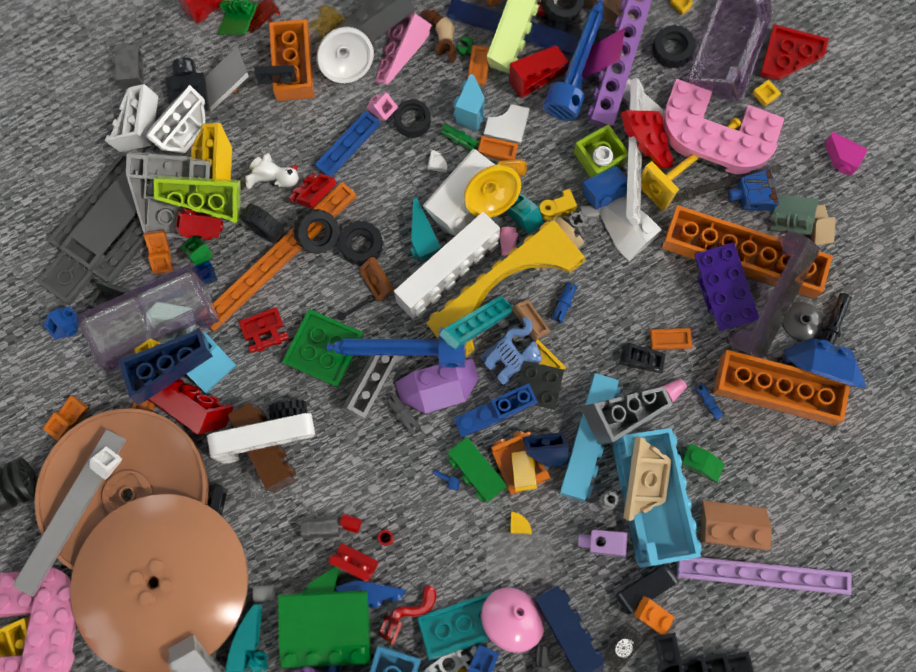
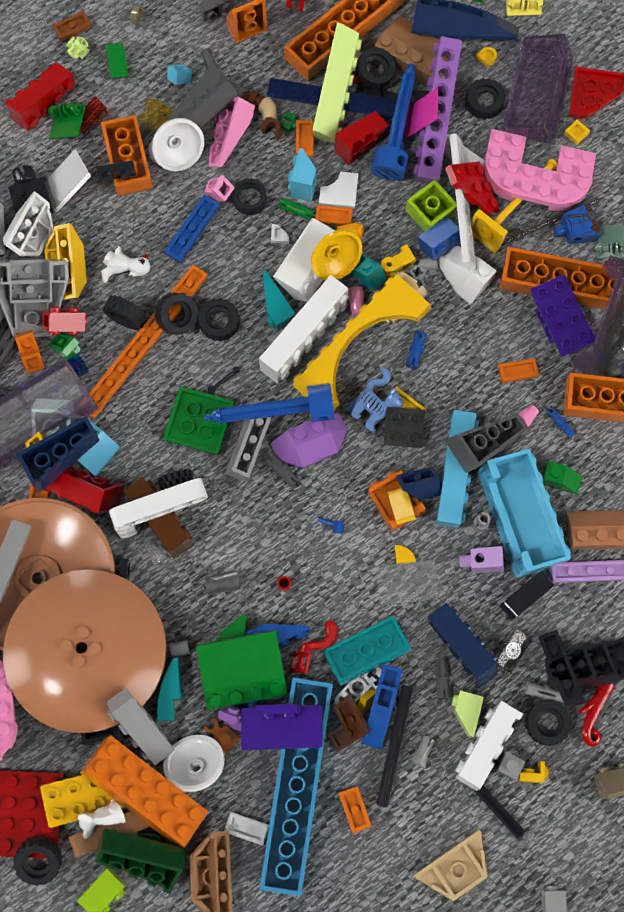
camera: 10 degrees left, 0 degrees up
(104, 462) = (16, 549): white slope -> none
(203, 195) = (70, 292): lime wedge -> none
(257, 661) = (183, 709): teal plate -> none
(260, 325) = (138, 406): red plate -> none
(312, 190) = (166, 275): red plate -> none
(350, 523) = (249, 575): red hinge -> none
(354, 562) = (258, 609): red bracket -> none
(376, 279) = (238, 351): dark orange plate -> none
(476, 322) = (340, 376): teal plate -> none
(476, 471) = (357, 512): green brick -> none
(496, 411) = (368, 456): blue slope -> none
(505, 626) = (410, 639): bright pink dish -> none
(526, 309) = (381, 360): medium nougat tile -> none
(602, 156) = (433, 209): white plate -> none
(635, 349) = (494, 397): black slope -> none
(647, 479) = (513, 497): tan wing -> none
(654, 616) = (536, 617): orange plate -> none

